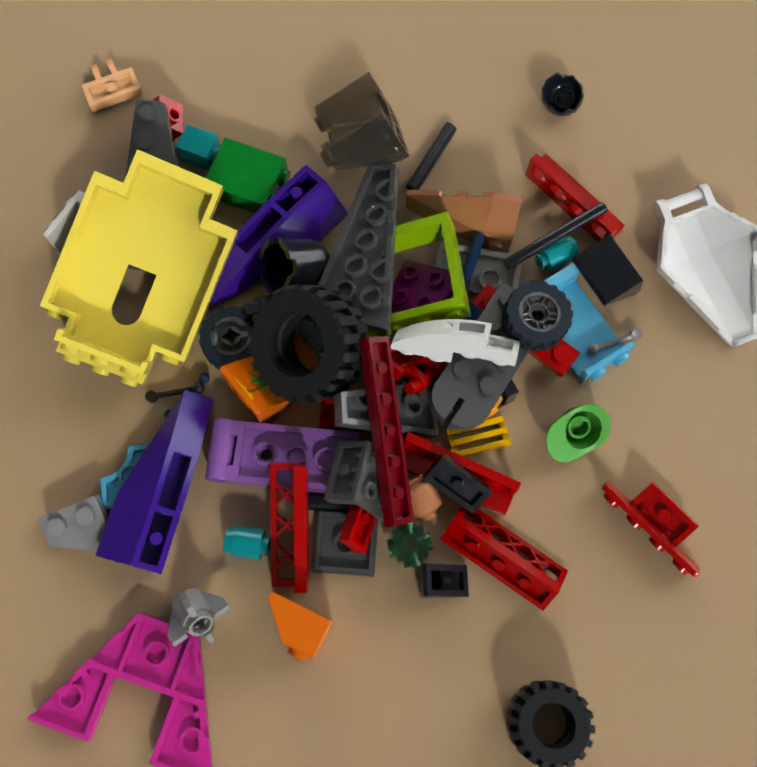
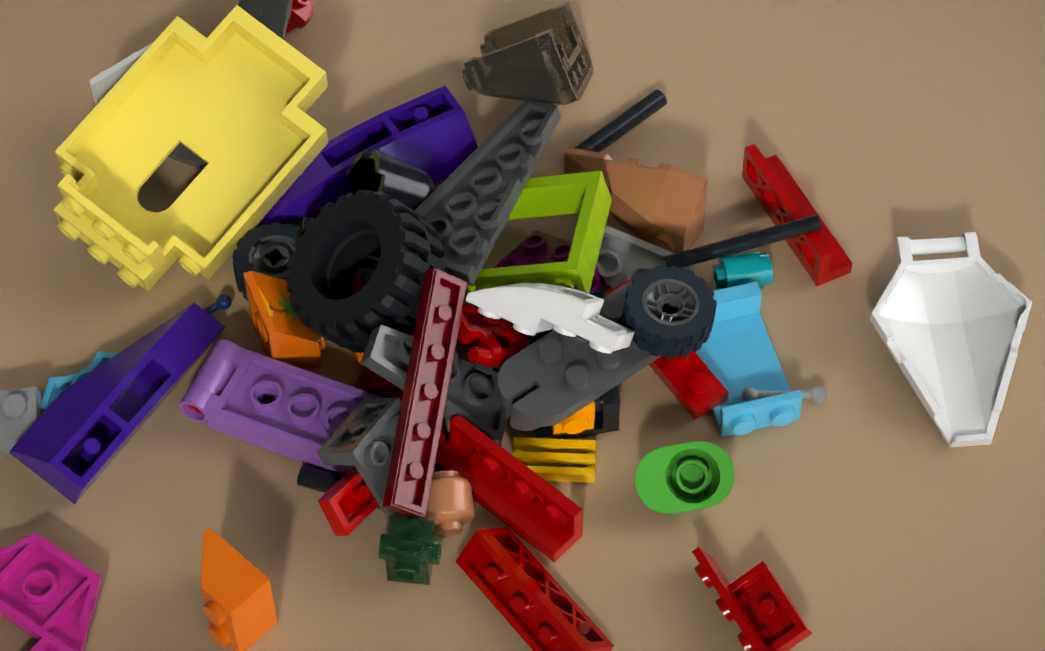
camera: 20 degrees right, 20 degrees down
(151, 396) = (150, 307): black hinge -> none
(194, 614) = (103, 547): light grey brick -> none
(198, 147) = (322, 42): teal brick -> none
(246, 542) = (202, 494): teal brick -> none
(247, 174) = (366, 84): green brick -> none
(300, 530) = (275, 484): red fence -> none
(335, 557) = (315, 548): dark grey tile -> none
(443, 581) = (436, 604): black slope -> none
(457, 483) = (499, 490): black plate -> none
(472, 258) = (619, 252): dark blue bar -> none
(562, 94) = (822, 90): black hair -> none
(608, 271) = (800, 304): black slope -> none

